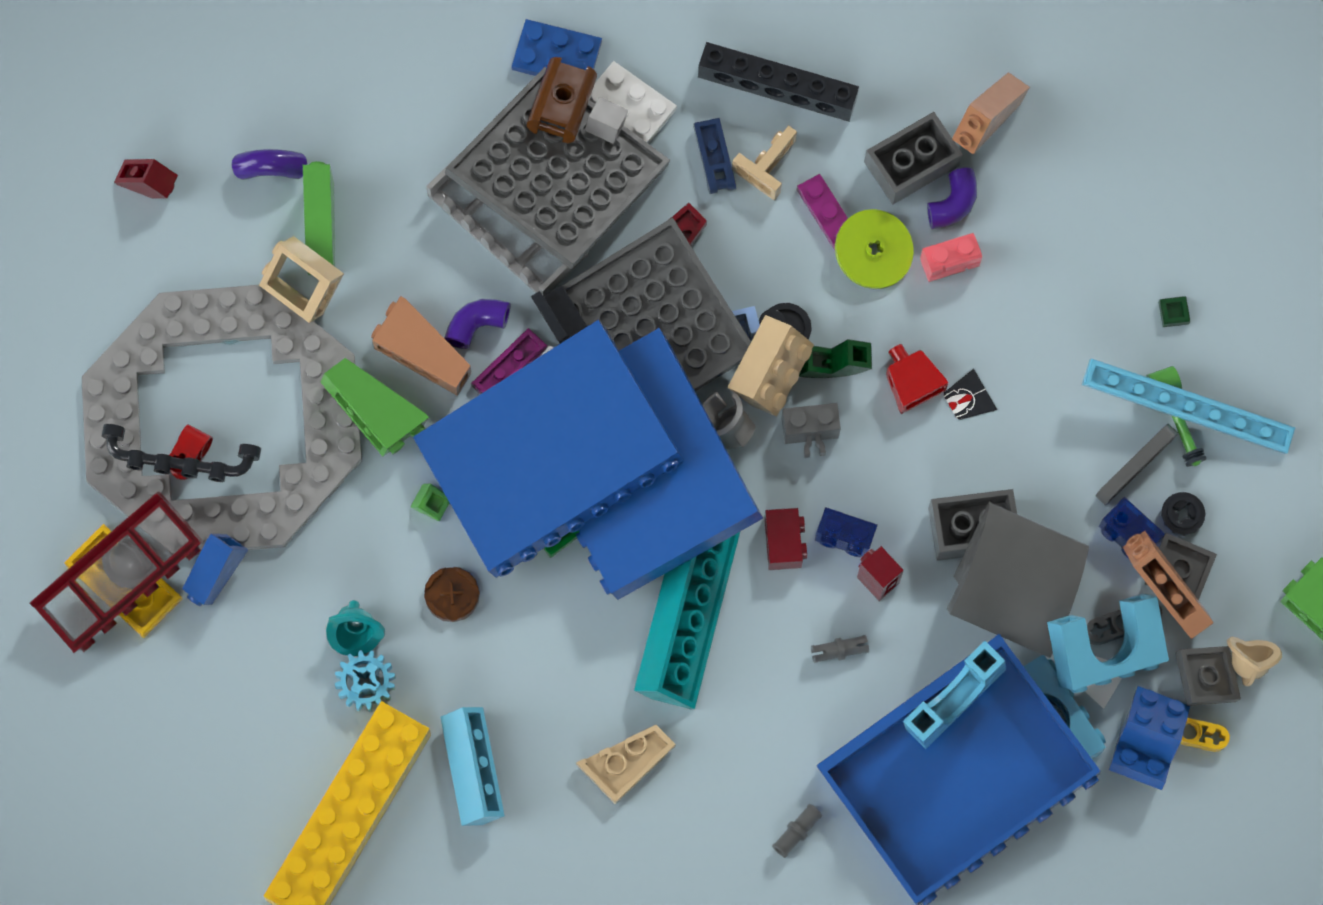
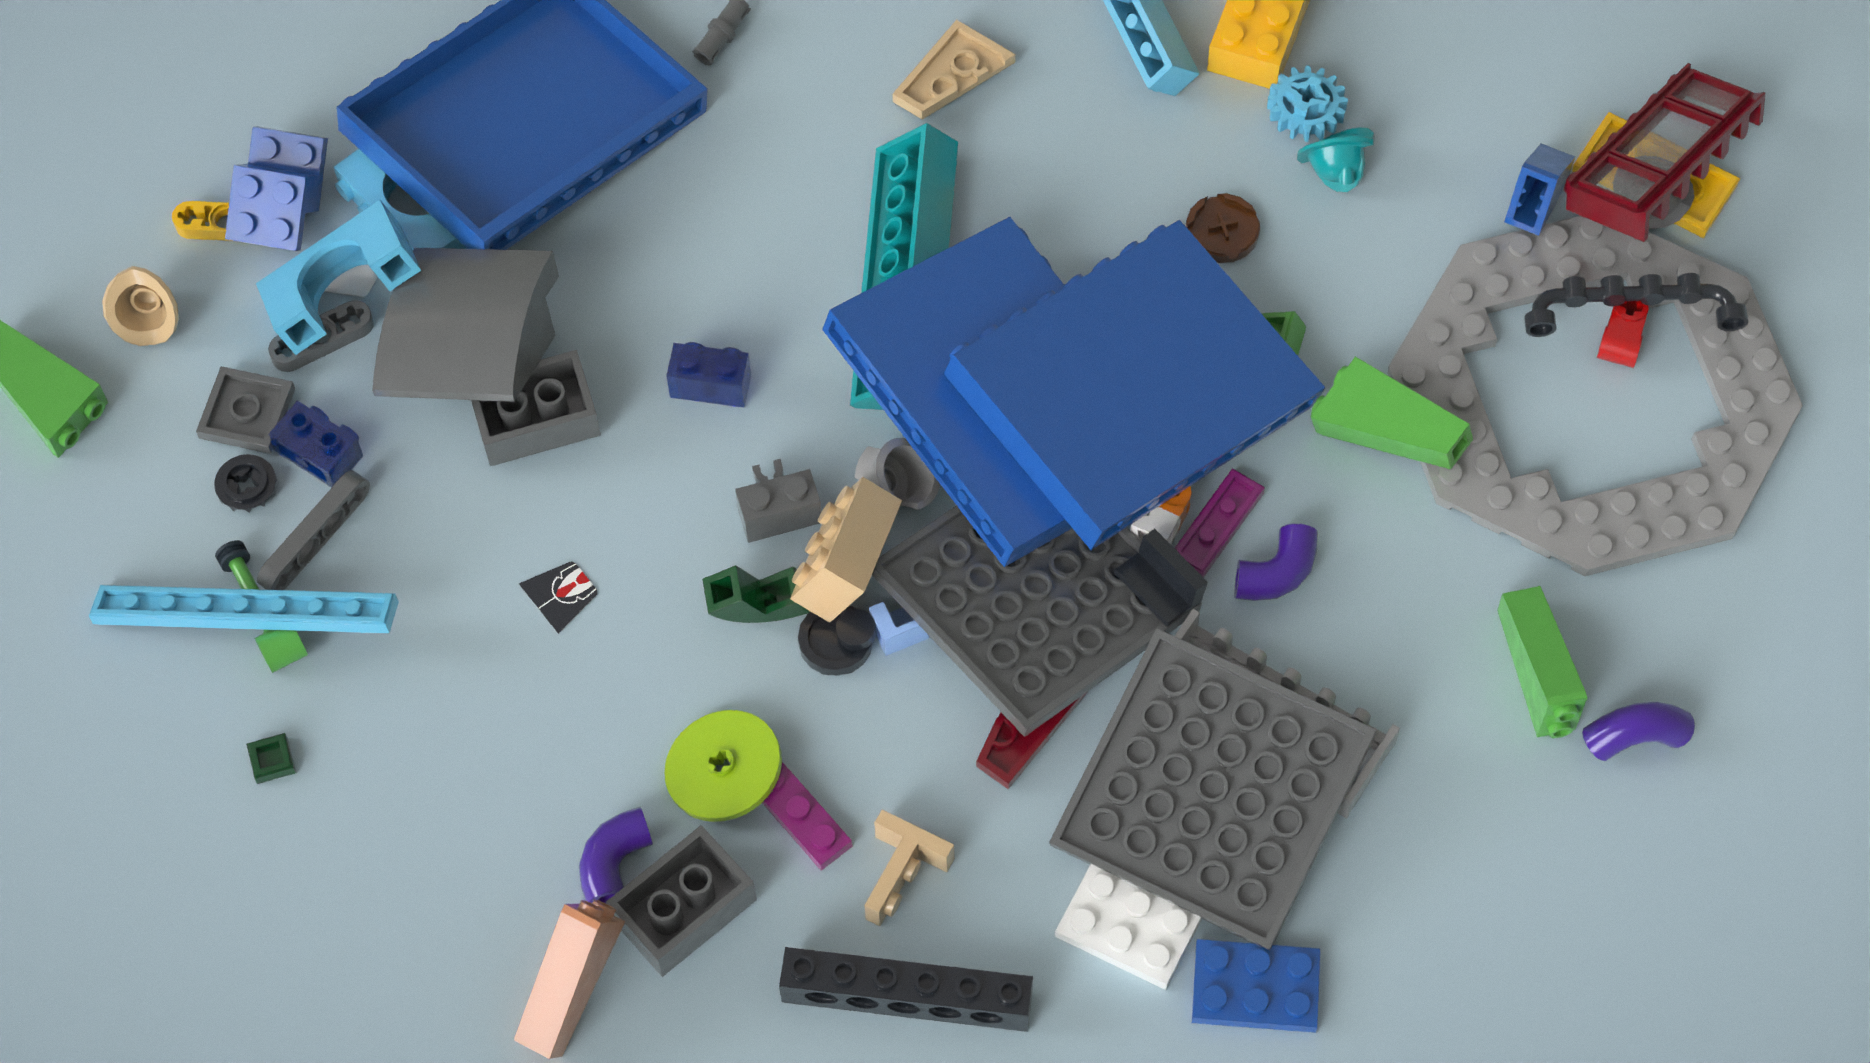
camera: 175 degrees right, 10 degrees down
(146, 178) = (1810, 682): dark red slope -> none
(325, 272) = (1542, 565): tan window -> none
(419, 346) = (1350, 517): nougat slope -> none
(560, 116) = (1224, 850): reddish brown piece -> none
(606, 120) = (1154, 863): light grey panel -> none
(714, 155) = (984, 866): dark blue plate -> none
(783, 538) = (792, 355): dark red brick -> none
(839, 649) = (697, 240): dark grey pin -> none
(879, 572) = (654, 320): dark red brick -> none
(913, 378) = (641, 592): red torso -> none
(932, 719) = (508, 168): medium azure arch -> none
(951, 257) = (607, 768): coral brick -> none
(1167, 584) = (265, 360): nougat slope -> none
(1207, 675) = (204, 278): dark grey plate -> none

